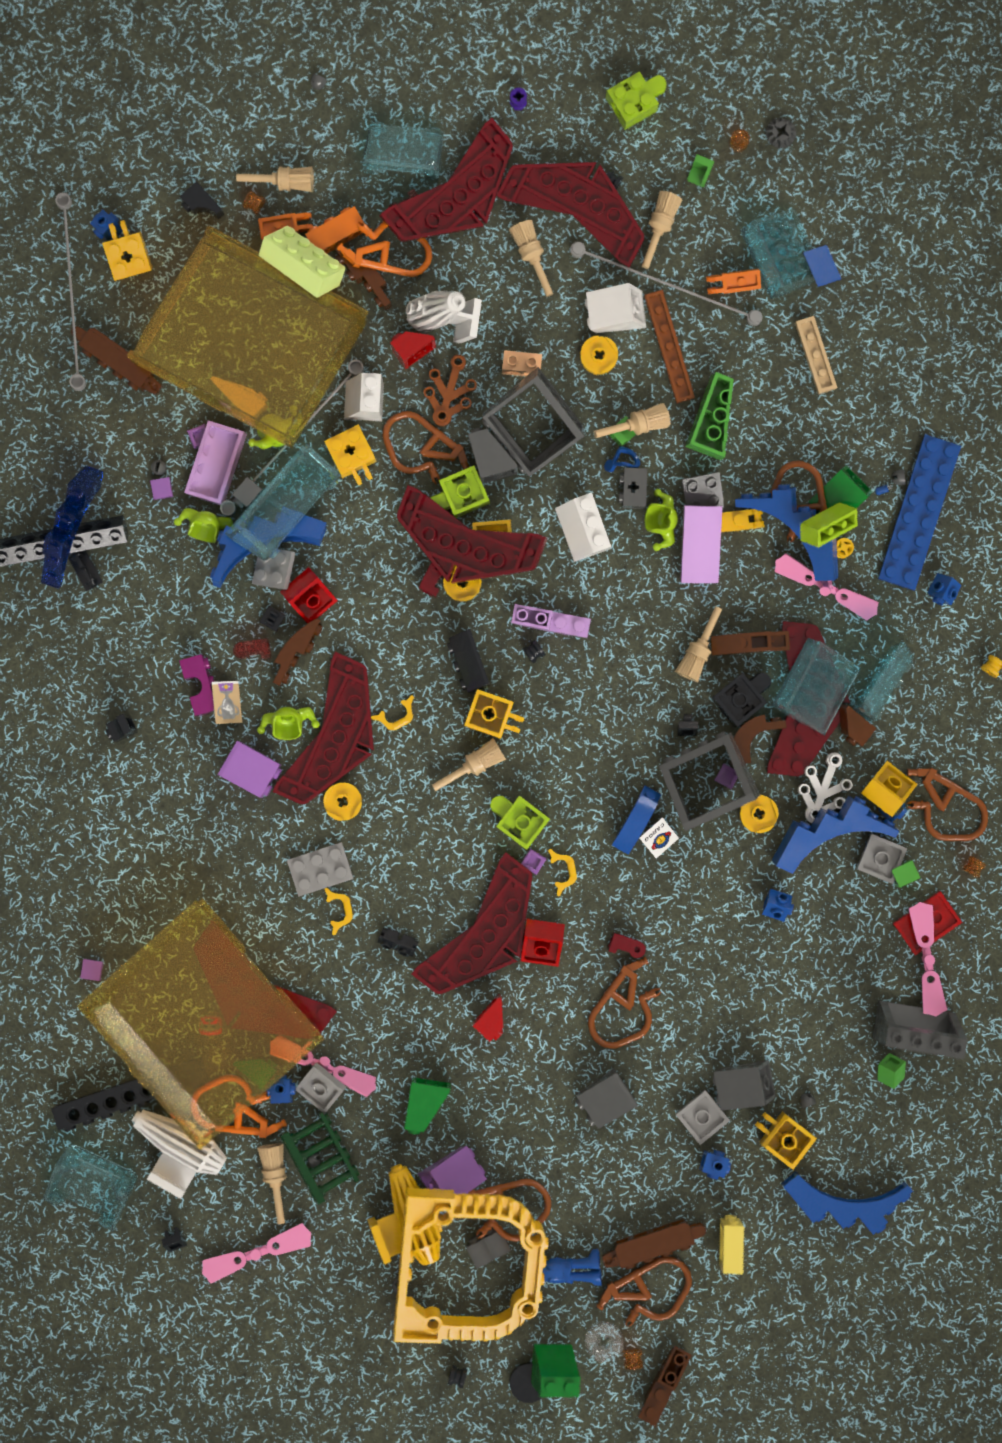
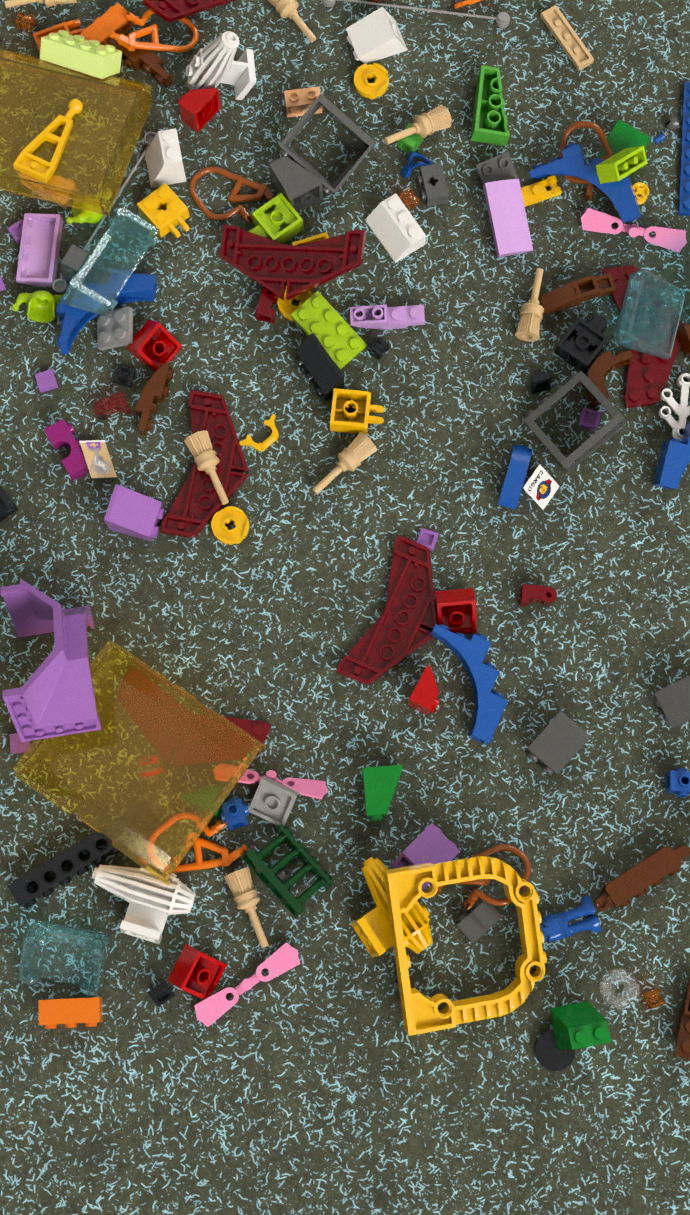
camera: 15 degrees left, 10 degrees down
(85, 1238) = (70, 1012): none -> orange brick
(140, 949) = (61, 691): none -> medium lavender panel
(193, 605) = (46, 380): none -> medium lavender tile
(211, 1231) = (196, 972): none -> red slope
(226, 389) = (38, 167): none -> yellow plate
(287, 722) = (160, 464): lime piece -> none
(320, 869) = (223, 594): light grey plate -> none
(333, 733) = (206, 459): none -> tan piece
(347, 909) = (258, 624): yellow helmet -> none
(404, 946) = (324, 647): black hinge -> none
(449, 394) = (242, 142): dark orange plant -> none
(457, 1376) = (481, 1060): black wheel -> none
(488, 621) = (330, 328): none -> lime plate
(519, 819) = (404, 501): lime brick -> none
(549, 1044) = (482, 676): none -> blue arch
(571, 869) = (465, 537): yellow helmet -> none
(605, 500) = (409, 199): none -> clear orange wheel
(626, 970) = (545, 619): dark orange piece -> none
(644, 1294) = (613, 932): dark orange piece -> none
(662, 519) = (466, 205): lime piece -> none
(669, 346) = (433, 61): dark orange tile -> none
(702, 1117) = (655, 741): light grey plate -> none
(768, 818) = (624, 454): yellow plate -> none
(777, 905) = (671, 522): blue brick -> none

